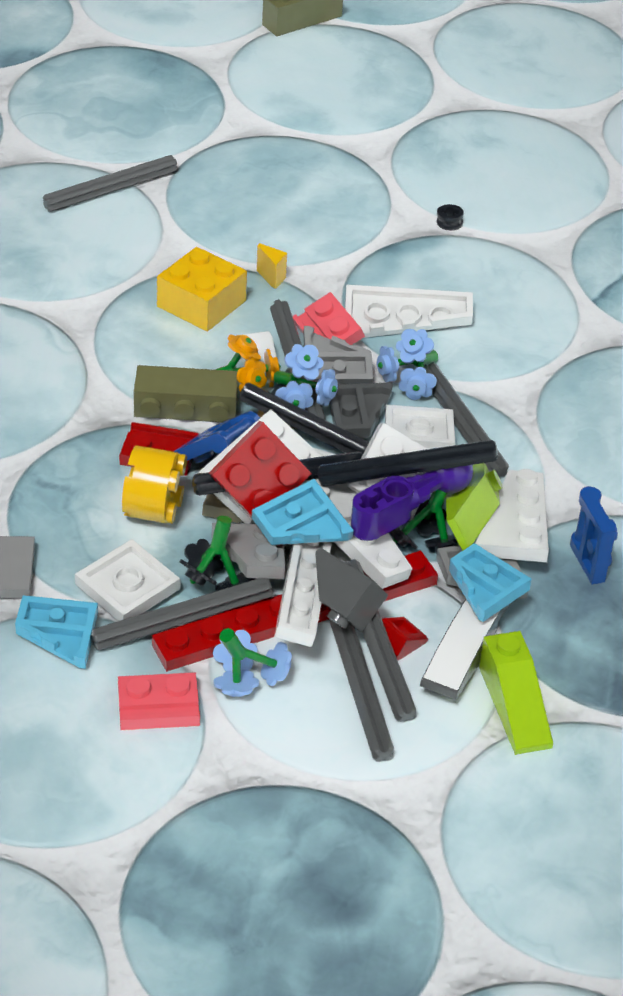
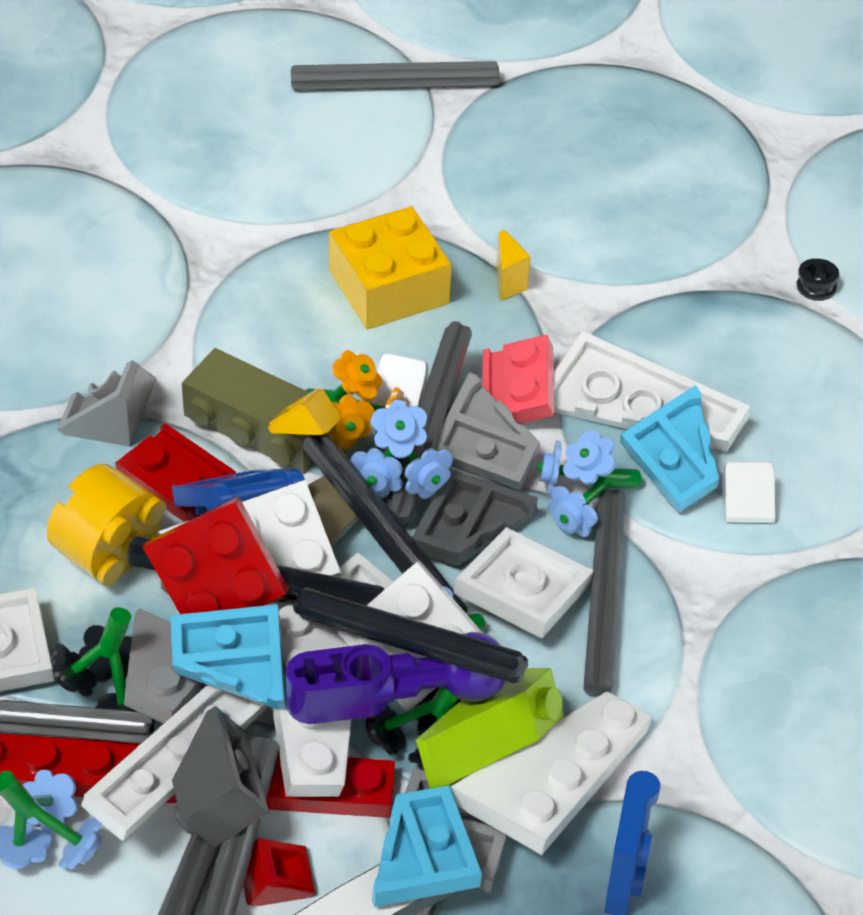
camera: 30 degrees right, 5 degrees up
(90, 428) = (112, 409): none -> light grey slope
(233, 378) = (307, 416): none -> yellow slope
(451, 330) = (675, 450): none -> medium azure wing
(502, 340) = (748, 492): none -> white slope

